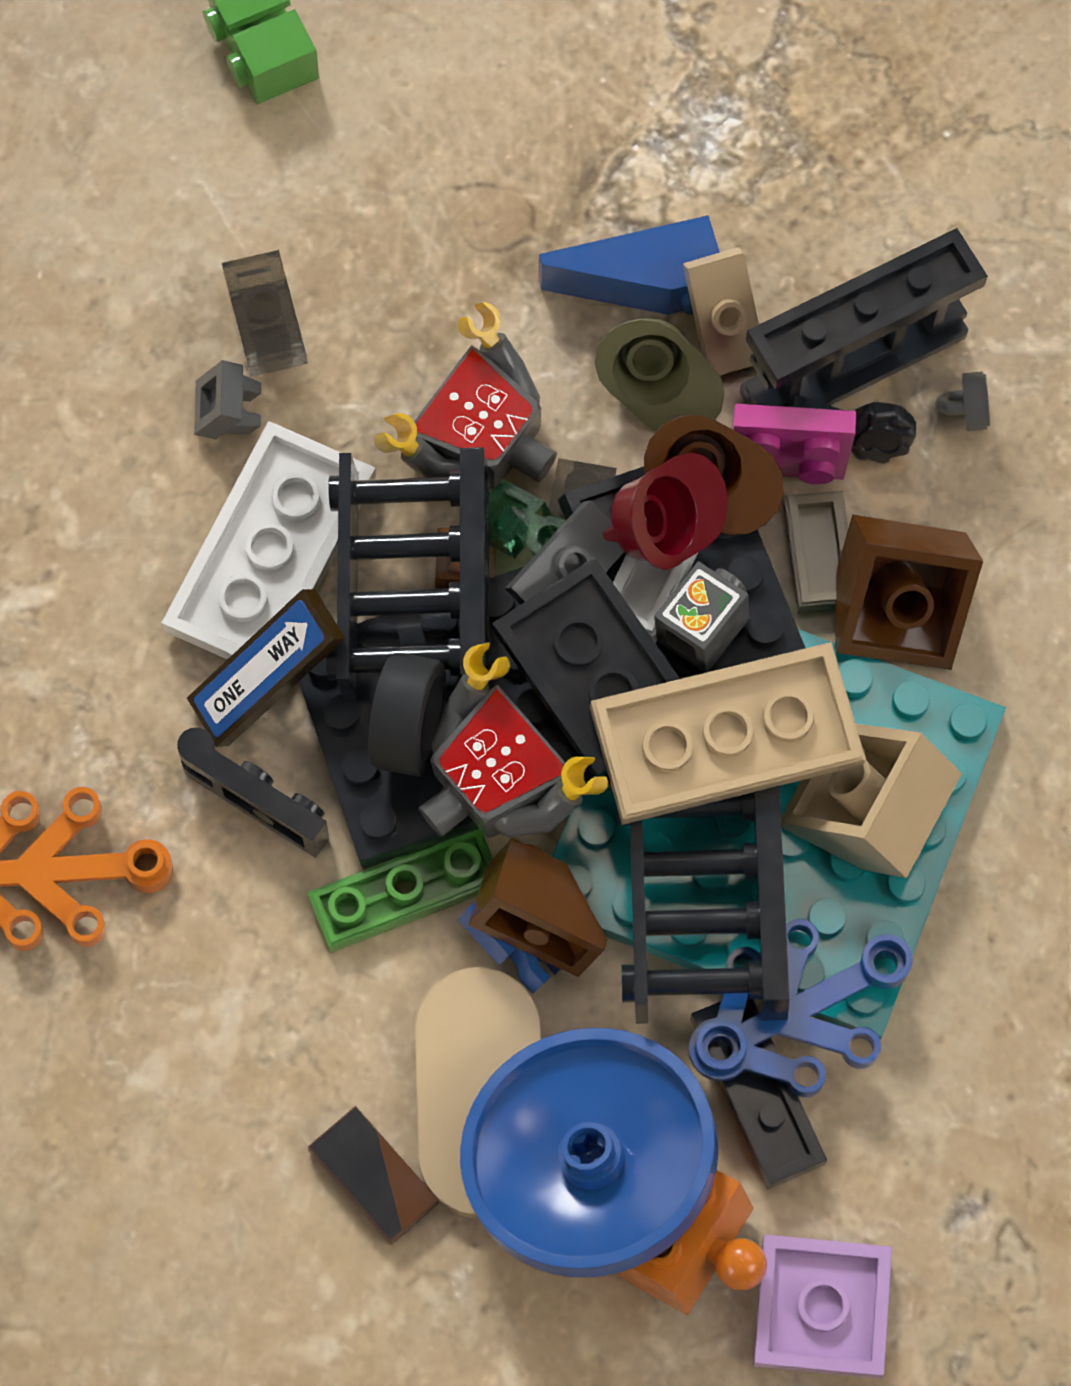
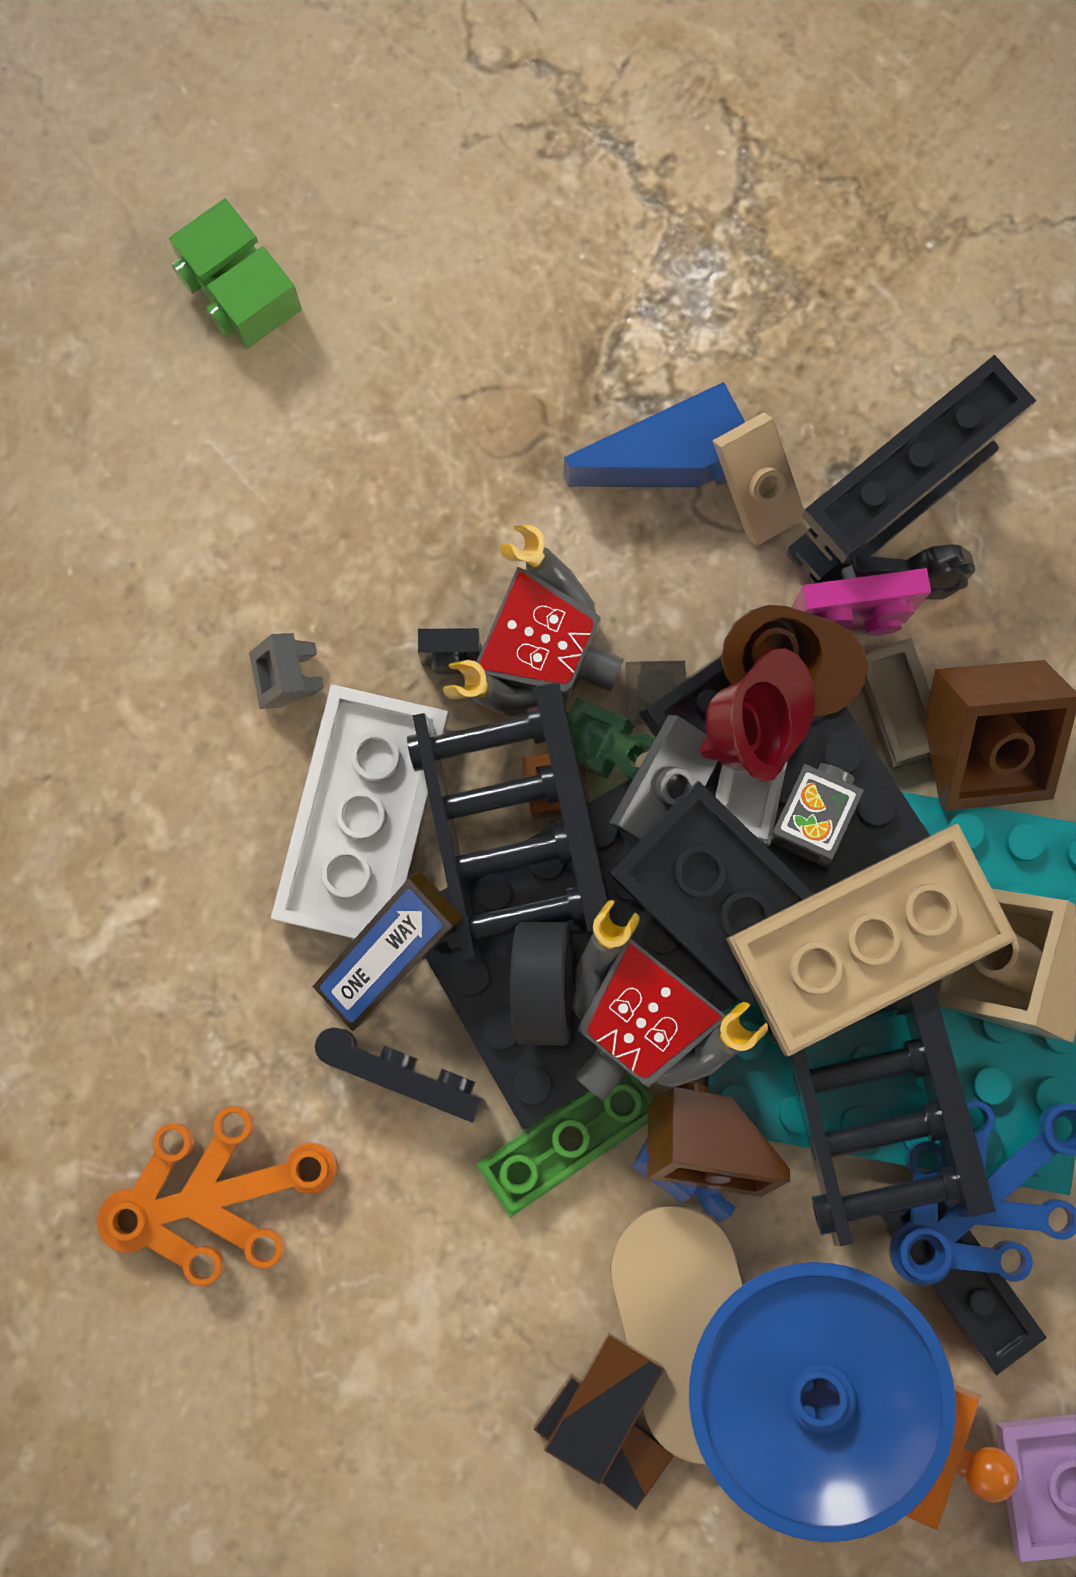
camera: 10 degrees left, 10 degrees up
(264, 313) = (303, 575): clear smoke brick -> none
(380, 1135) = (603, 1408): none -> black tile
(382, 401) = (446, 646): none -> black plate
(657, 372) = (710, 558): olive piece -> none
(970, 401) = (1022, 521): dark grey tile -> none

